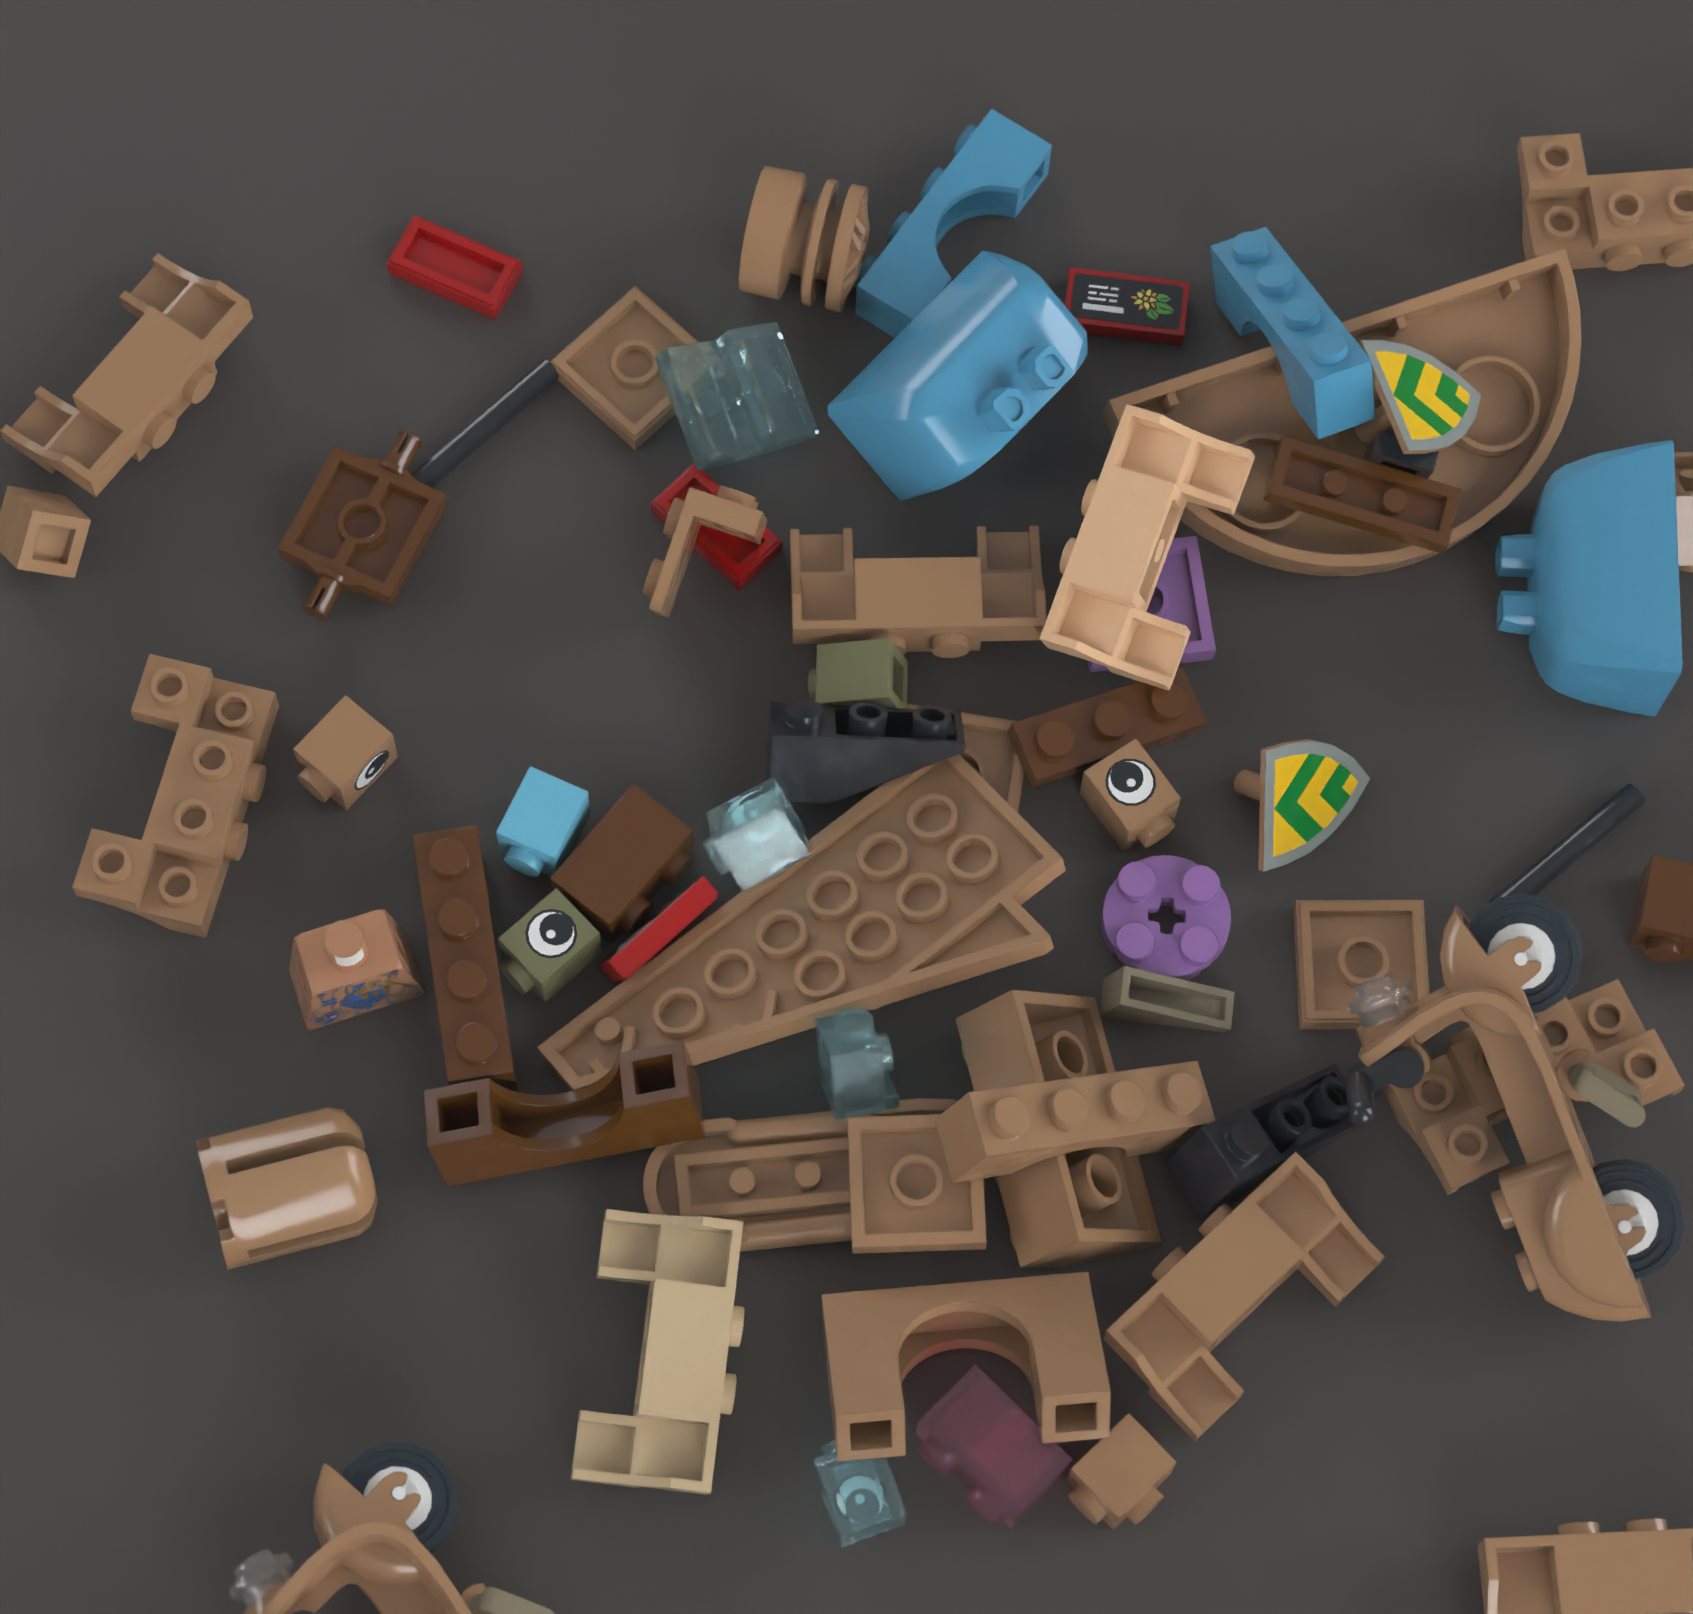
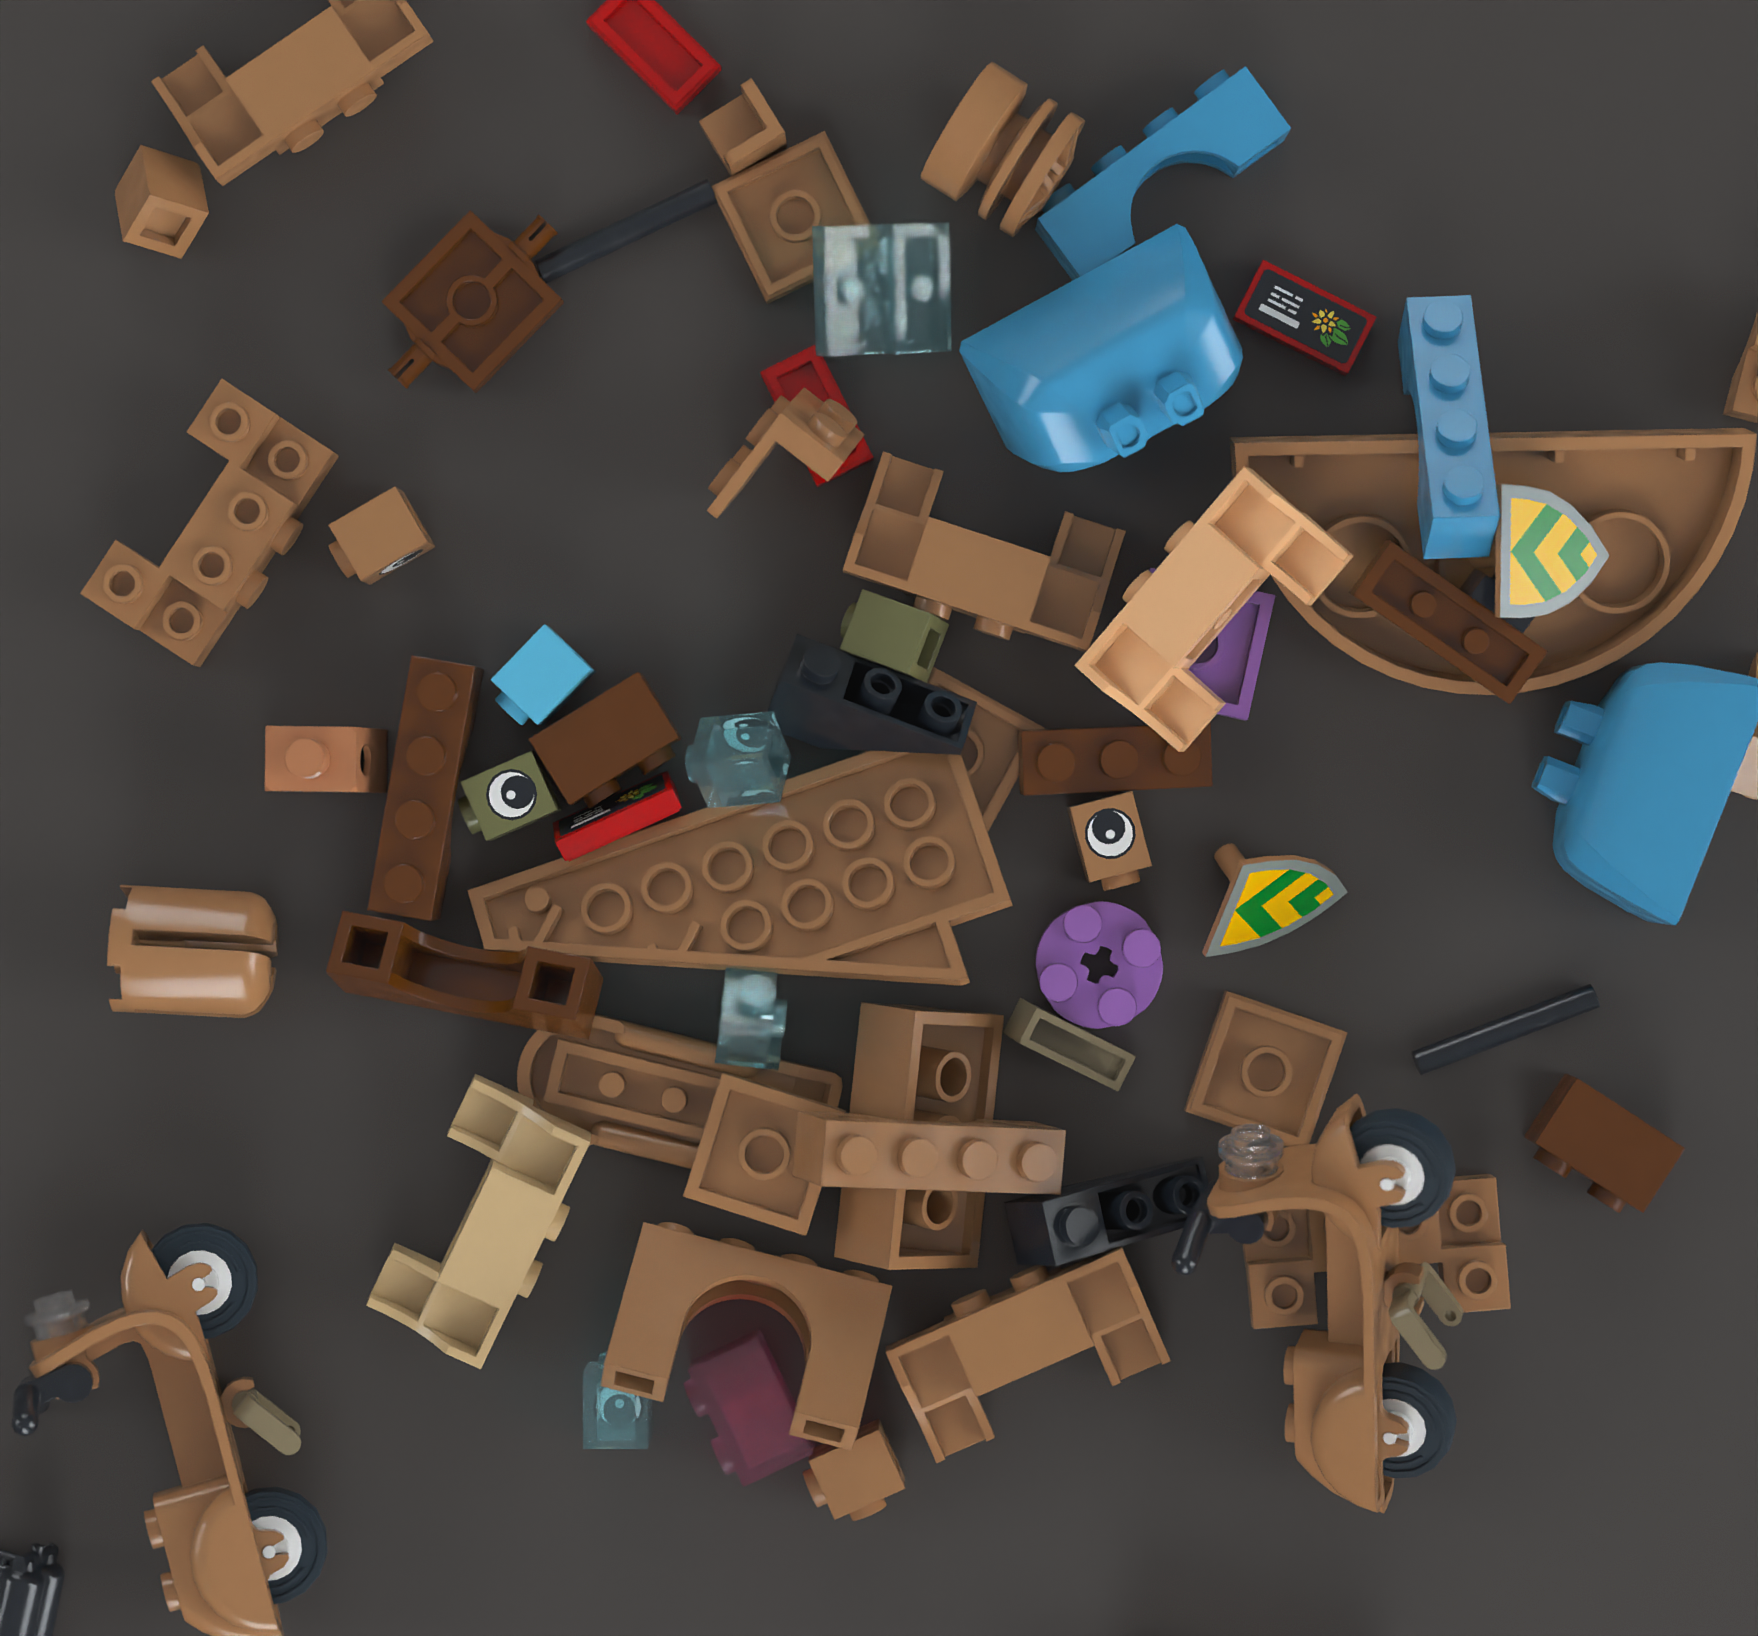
camera: 25 degrees right, 20 degrees up
(564, 303) = (744, 130): none -> medium nougat panel

